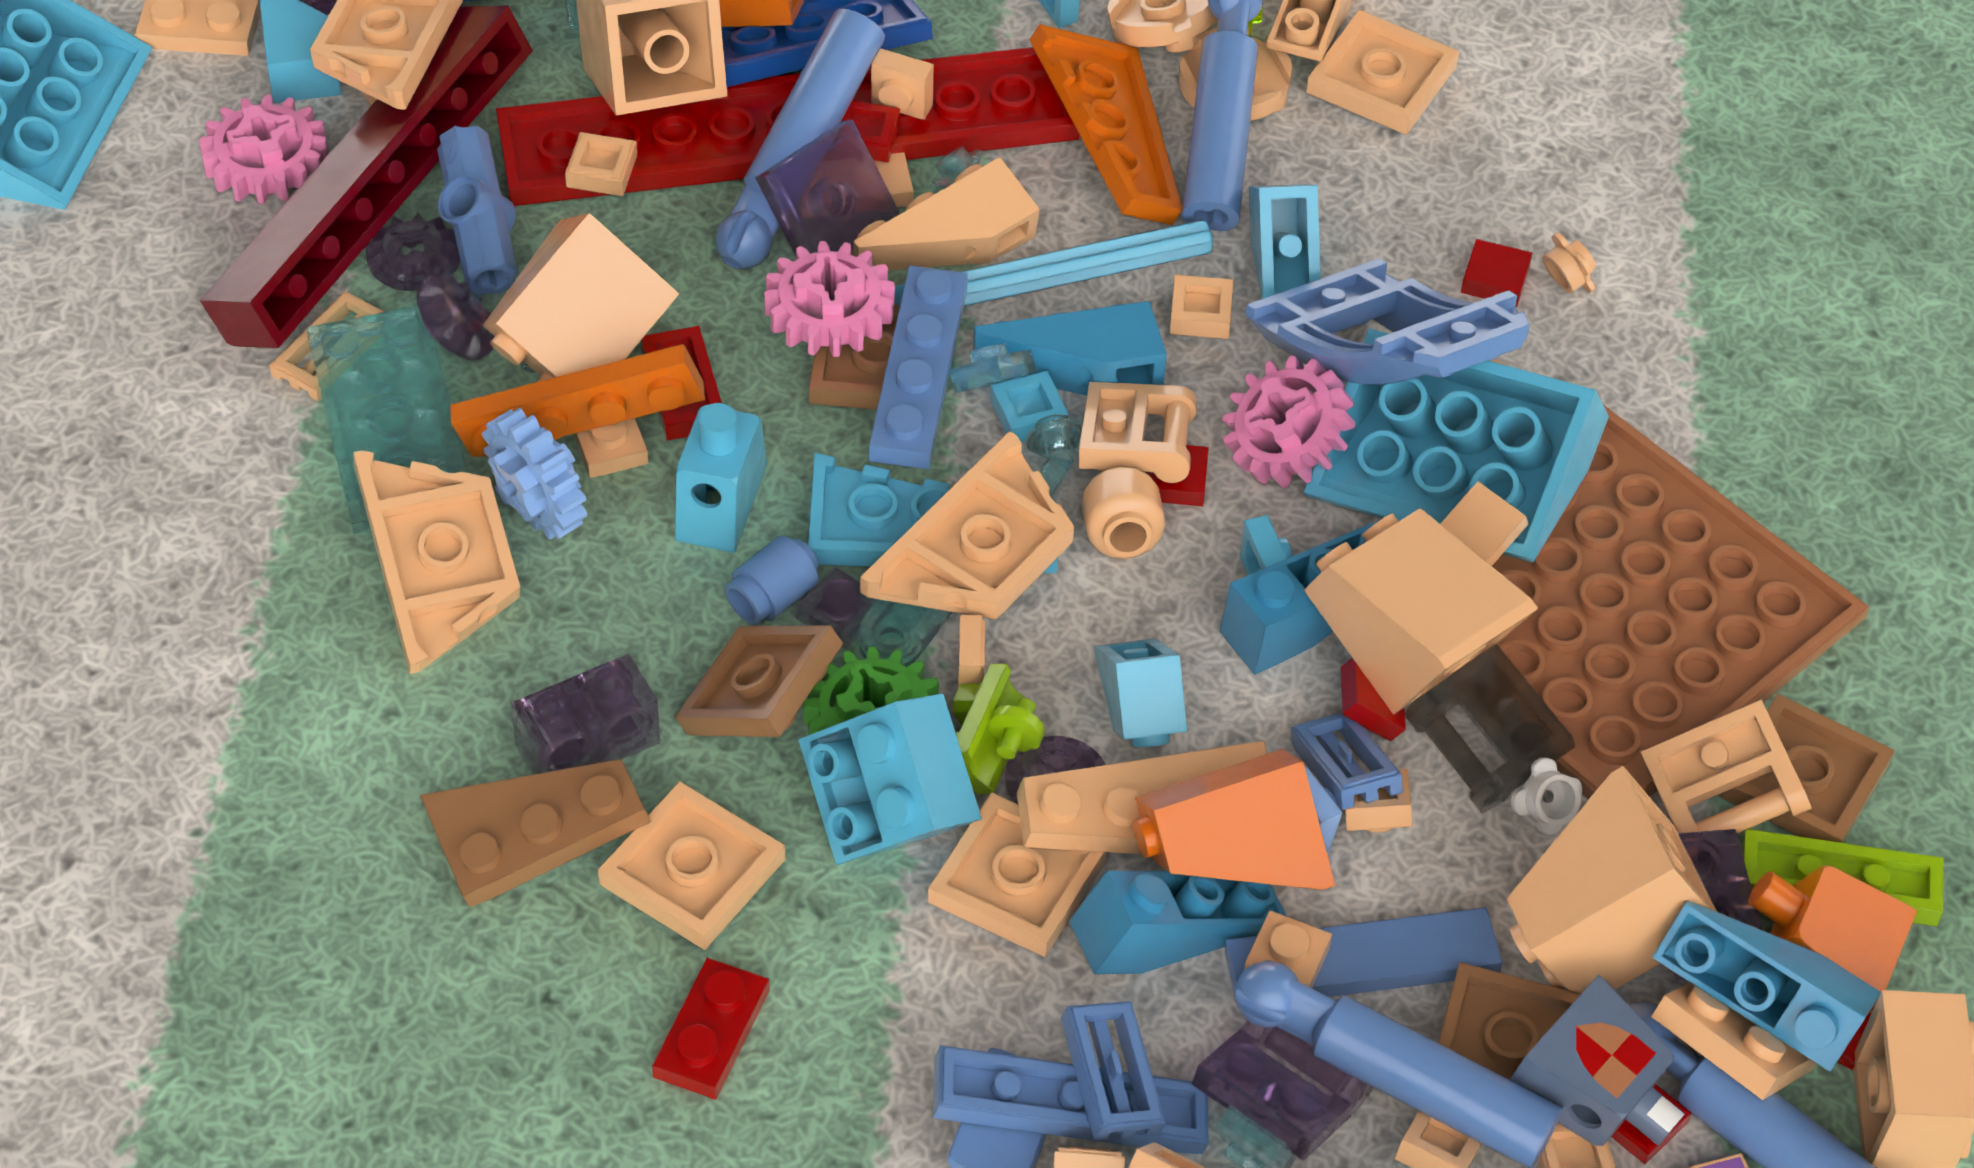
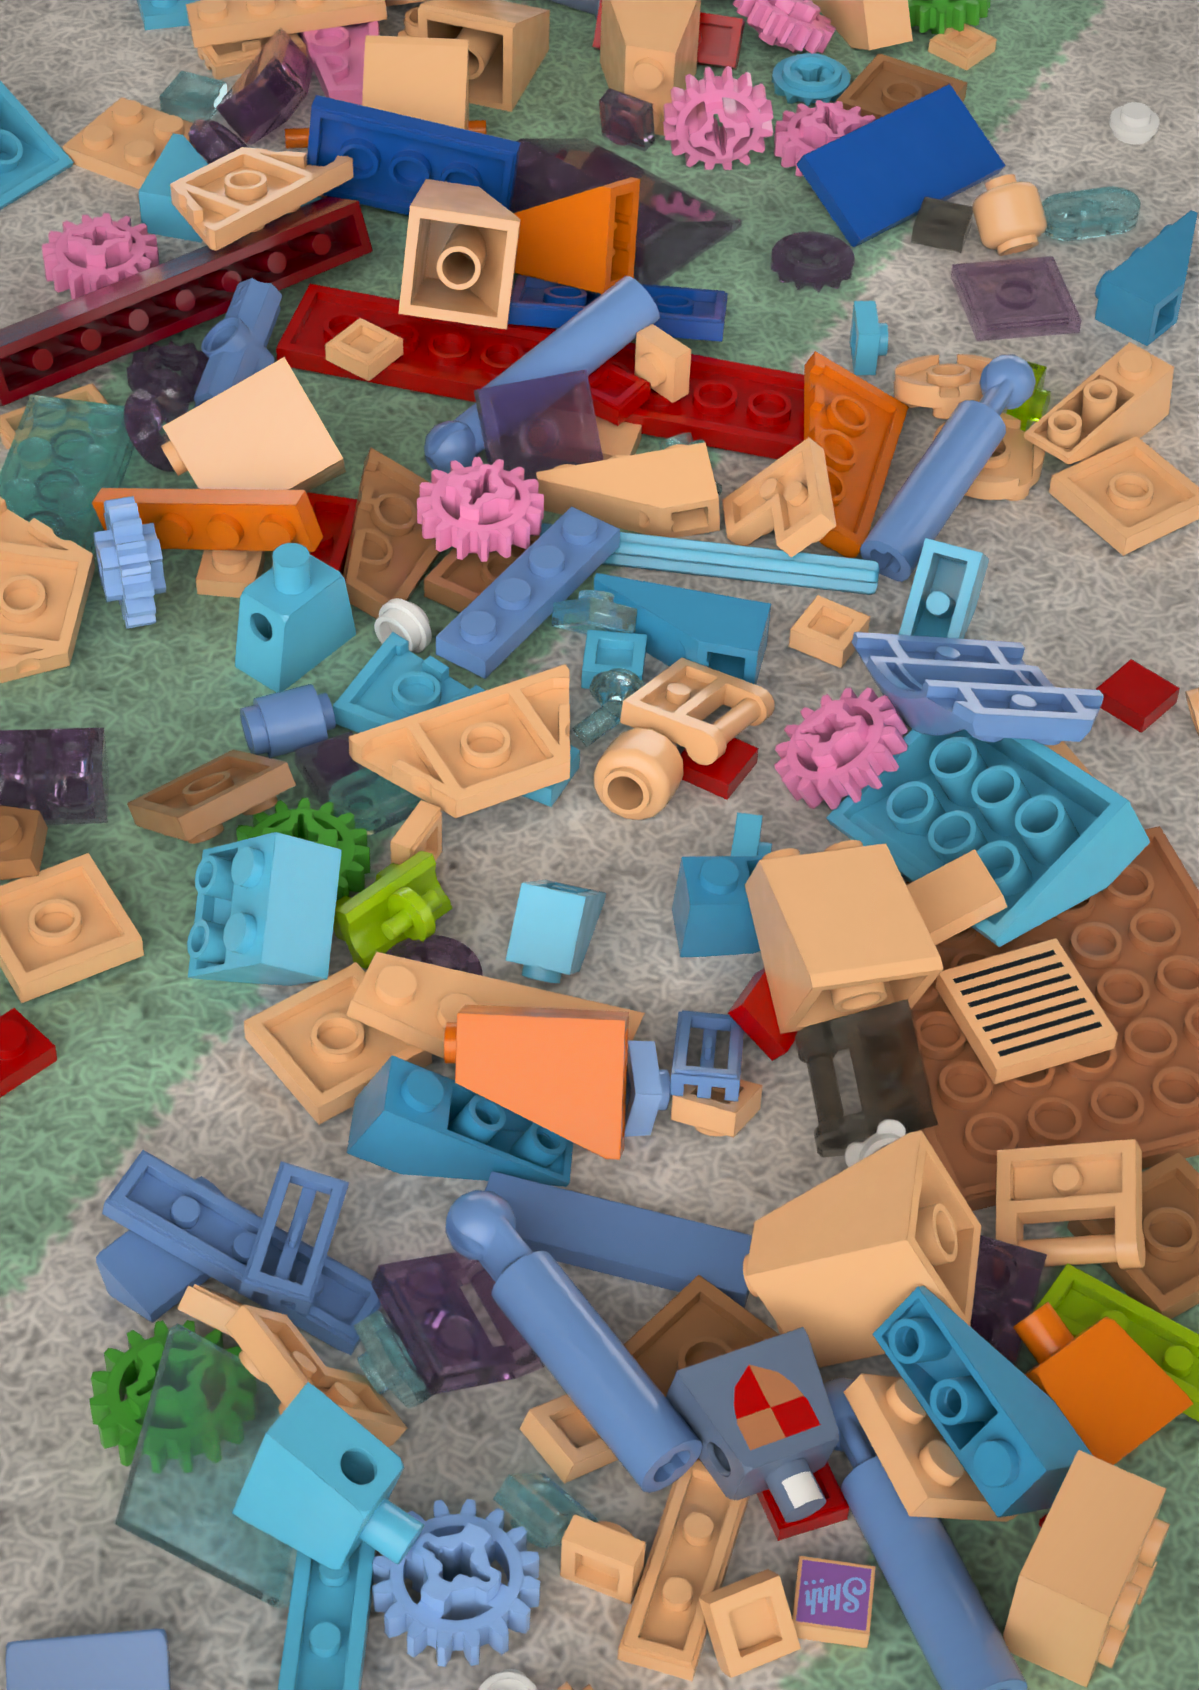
camera: 25 degrees right, 5 degrees down
(748, 359) = (386, 542): none -> medium nougat wing
(817, 436) = (406, 621): none -> white plate
(1098, 178) = (784, 497): none -> light nougat plate
(1293, 944) = (541, 1202): light nougat plate -> none
(1589, 613) = (1026, 1010): none -> light nougat tile

